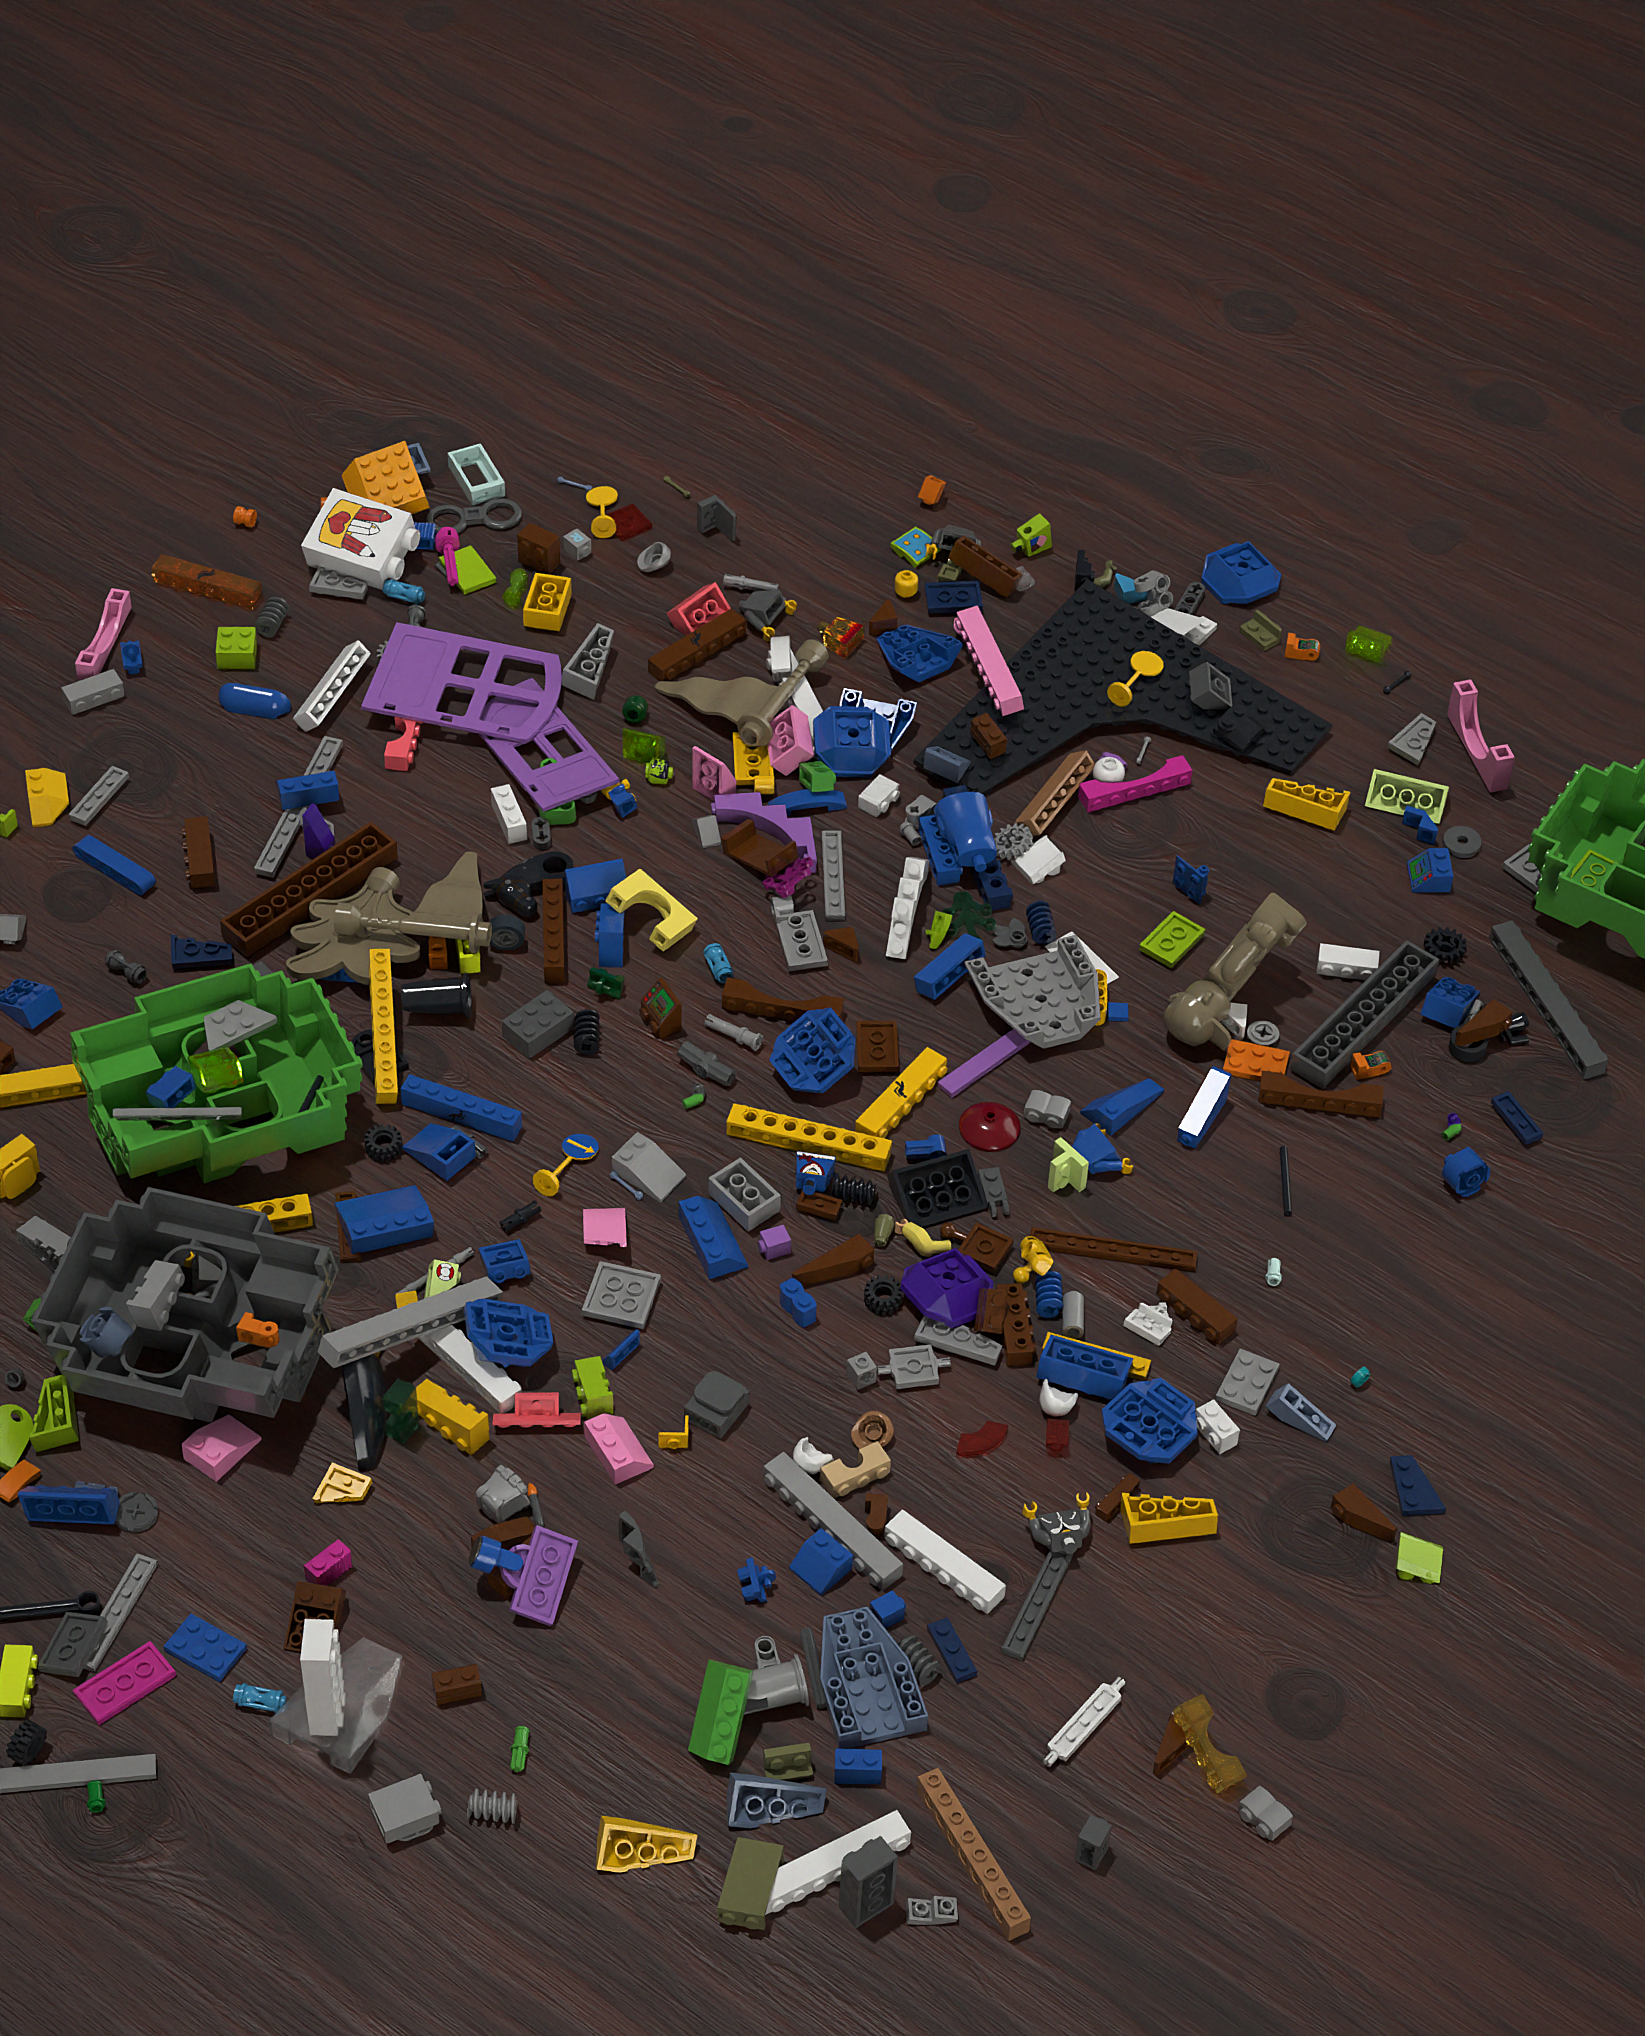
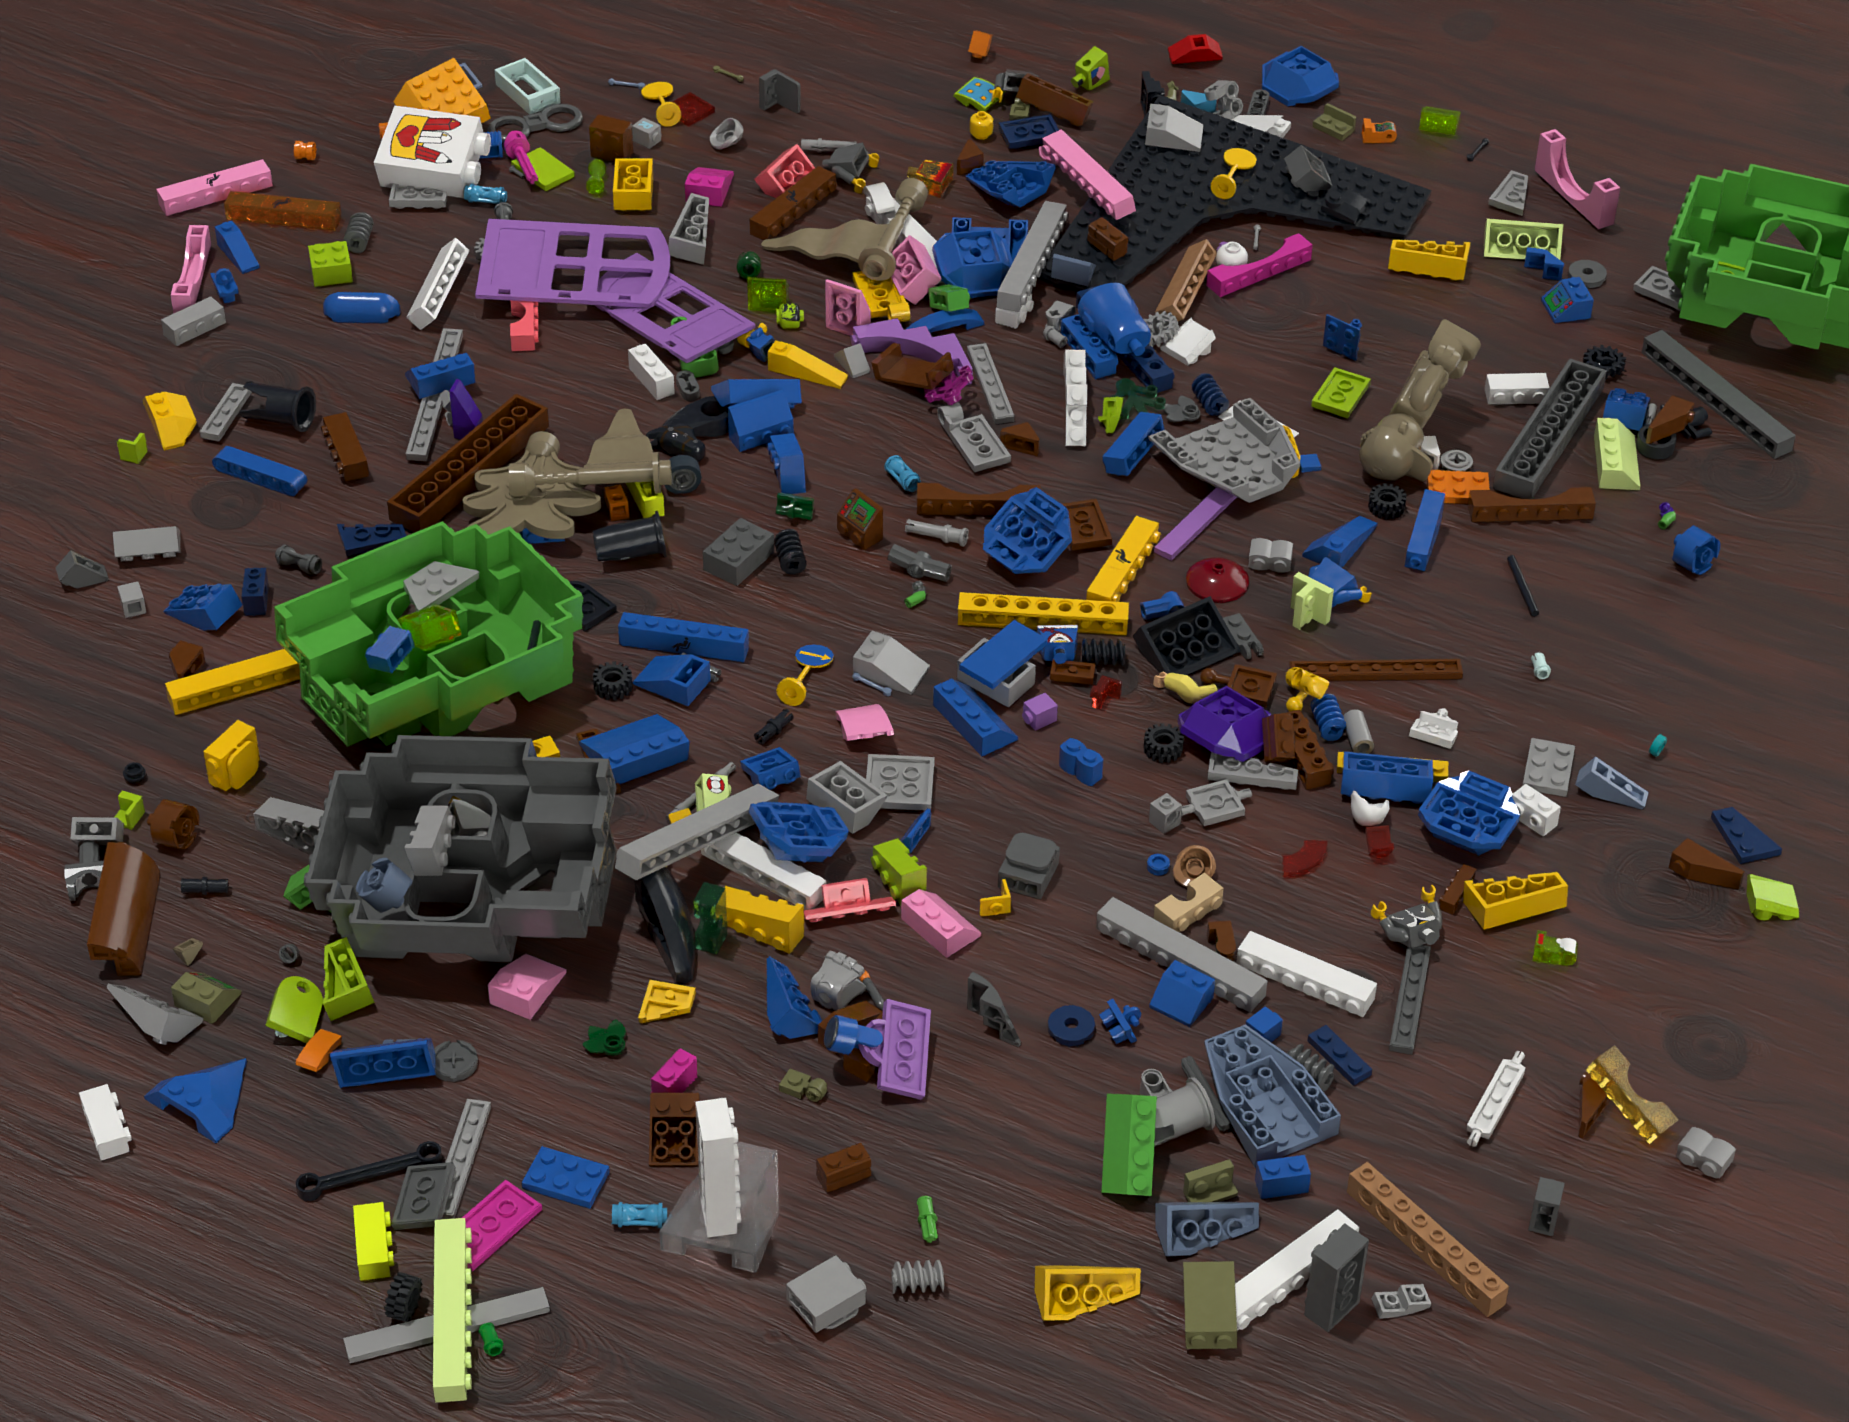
camera: 10 degrees left, 5 degrees down
(65, 1763) = (451, 1311): none -> yellowish green brick
(77, 994) = (255, 591): none -> dark blue brick
(137, 1114) = (404, 670): light grey tile -> none
(149, 545) = (214, 187): none -> bright pink brick
(151, 799) = (283, 405): none -> black piece
(152, 616) = (235, 247): none -> blue slope
(257, 1332) = (548, 857): orange leg -> none
(277, 1513) = (606, 1040): none -> dark green plate
(382, 1026) = (584, 572): yellow brick -> none
(440, 1590) = (798, 1083): none -> olive plate
(452, 1510) = (787, 1005): none -> blue wedge
(553, 931) = (732, 475): reddish brown arch -> none
(565, 1301) = (848, 793): none -> light grey slope
(582, 854) = (741, 390): none -> blue slope
(621, 611) = (709, 183): none -> dark pink slope
(643, 889) = (810, 416): light yellow arch -> none
(658, 827) = (800, 364): none -> yellow wedge
(709, 1564) = (1071, 1015): none -> dark blue tile
(752, 1179) = (1003, 654): none -> blue tile
(809, 1458) = (1142, 902): white hair -> none
(840, 1261) = (1110, 719): reddish brown slope -> none
(841, 1229) = (1105, 687): none -> clear red bracket
(841, 1422) = (1158, 864): none -> blue tile
(883, 1228) = (1144, 683): olive cone -> none
(910, 742) = (1032, 256): none -> light grey brick
(1026, 581) = (1096, 109): clear tile -> none
(1087, 622) = (1172, 129): none -> light grey slope
(1145, 527) = (1195, 49): none -> red slope
(1180, 1076) = (1396, 500): none -> black tyre
(1189, 1577) = (1554, 949): none -> clear neon green leg
(1196, 1306) = (1477, 706): reddish brown brick -> none
(1369, 1065) = (1568, 473): orange leg -> none
(1424, 1053) = (1616, 455): none -> yellowish green slope
(1516, 1118) = (1725, 499): dark blue plate -> none

